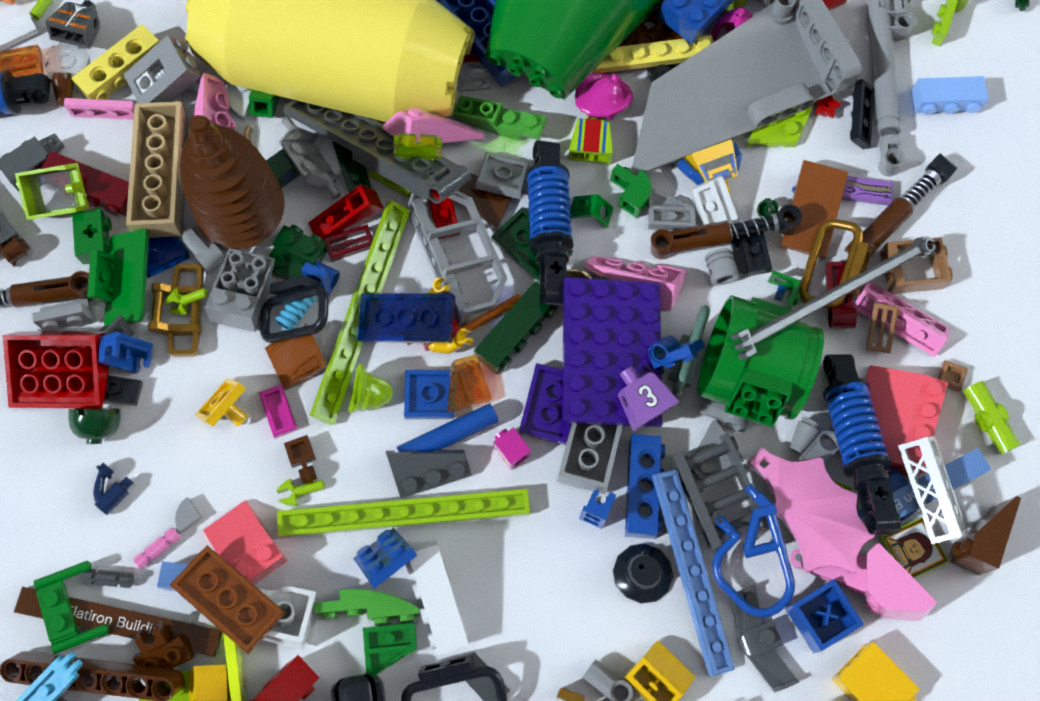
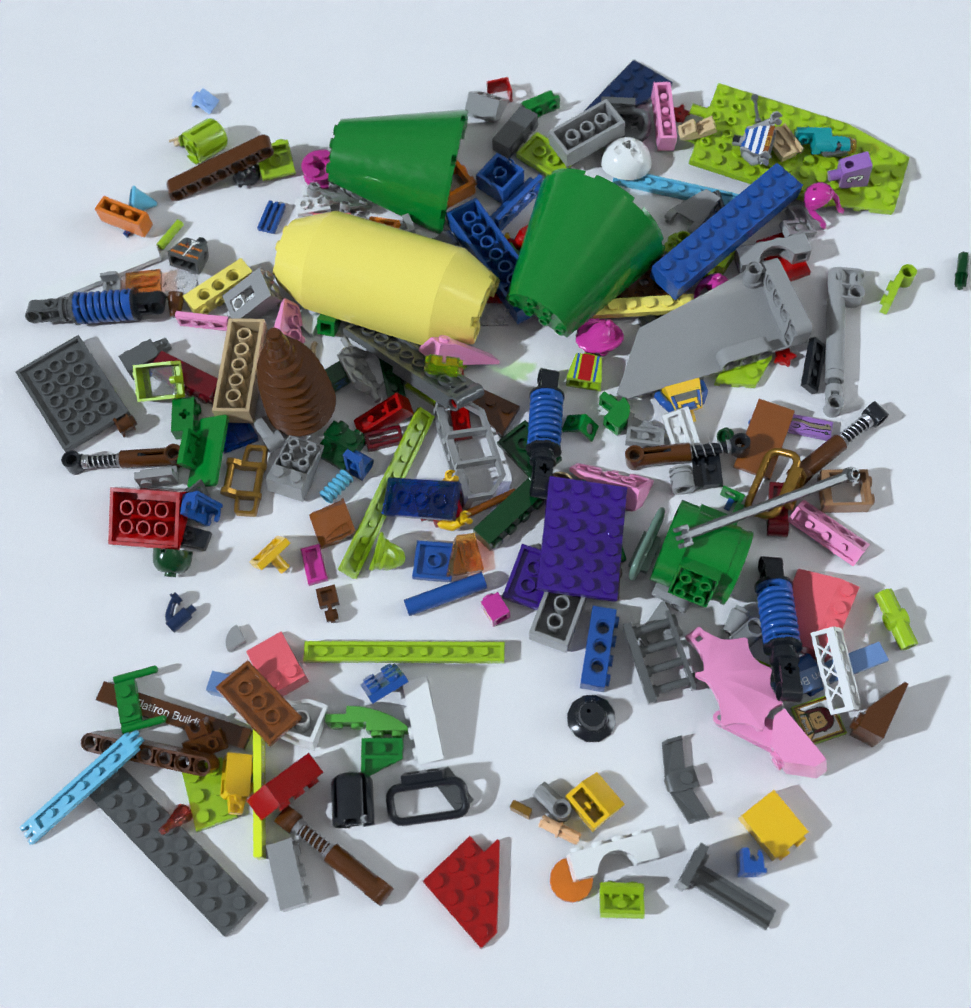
camera: 15 degrees right, 5 degrees down
(108, 578) = (169, 681): dark grey axle -> none
(157, 547) = (209, 661): bright pink axle -> none
(182, 308) = (251, 472): lime bar -> none
(289, 291) = (330, 471): black bar -> none
(298, 491) = (322, 628): lime bar -> none
(425, 470) = (424, 620): dark grey wing -> none
(498, 120) = (510, 349): bright green slope -> none
(502, 175) = (510, 394): light grey tile -> none
(596, 512) = (556, 664): blue hinge -> none
(644, 397) = (603, 575): medium lavender torso -> none
(668, 351) = (627, 540): blue plate -> none
(693, 573) = (631, 721): medium blue tile -> none
(750, 550) = (696, 675): blue piece -> none
(824, 616) = (735, 765): blue brick -> none
(885, 307) = (810, 538): medium nougat tile -> none
(949, 94) = (889, 354): light blue brick -> none
(953, 375) = (867, 583): medium nougat tile -> none

